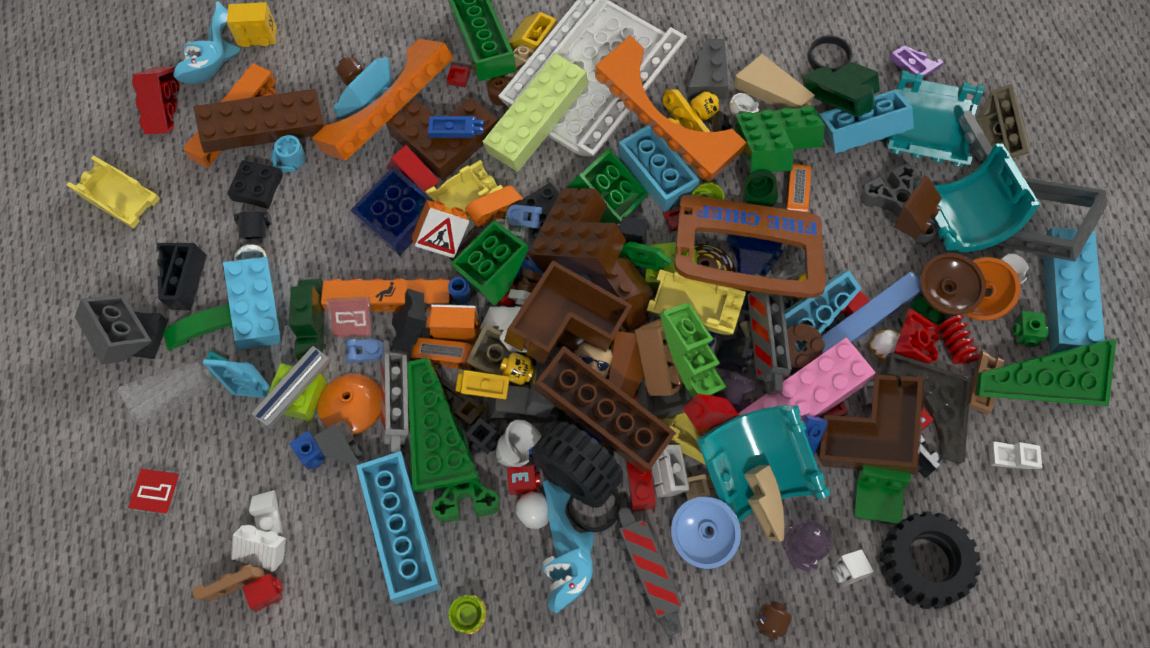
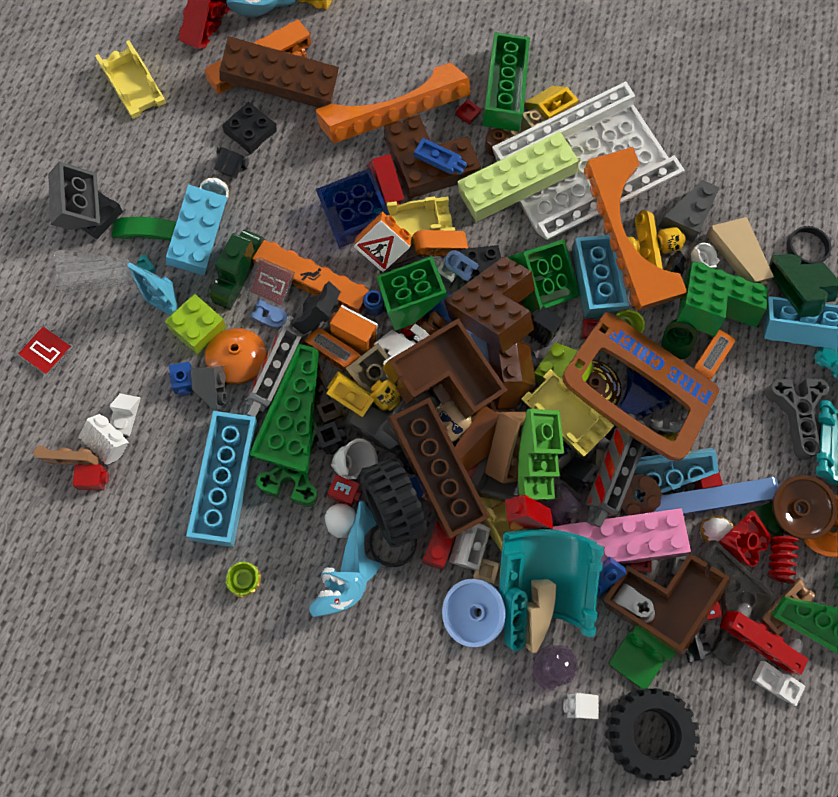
camera: 15 degrees right, 5 degrees up
(179, 274) = (150, 176): black wedge -> none
(289, 152) = (291, 114): medium azure piece -> none
(291, 387) = (192, 318): light grey tile -> none
(349, 69) = (378, 64): reddish brown head -> none
(365, 88) = (382, 86): medium azure wedge -> none
(645, 256) = (544, 350): green plate -> none
(651, 572) = (411, 621): dark grey hinge -> none
(754, 532) = (515, 604): none -> teal beam
(773, 620) = (492, 714): reddish brown head -> none
(848, 446) = (633, 601): none -> light grey piece
(919, 209) = (811, 426): reddish brown slope -> none
(982, 424) = (765, 643): none -> red piece

